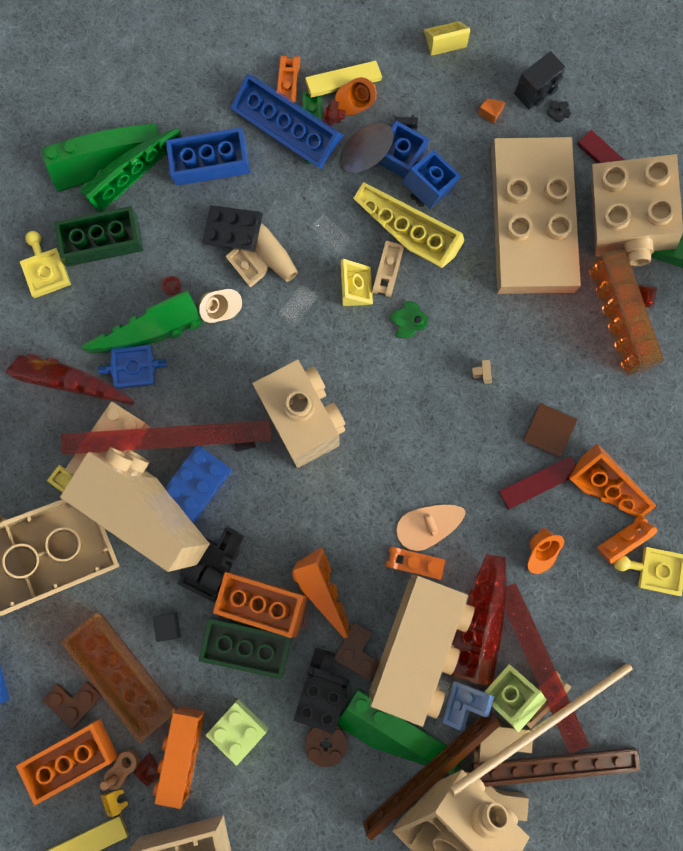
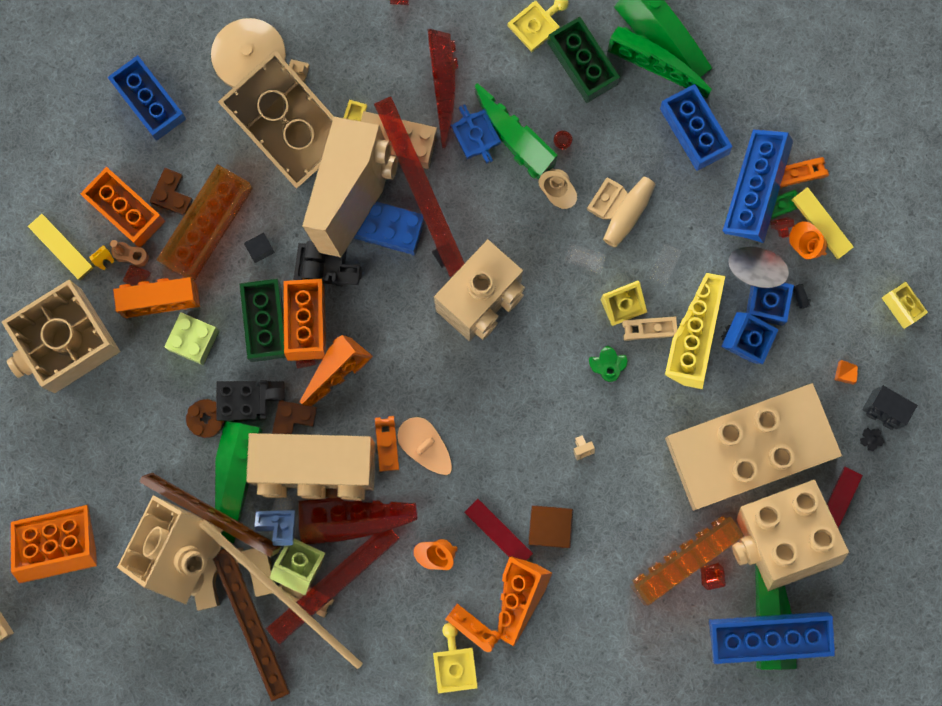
camera: 70 degrees right, 0 degrees up
(232, 228) = (634, 173): black plate -> none

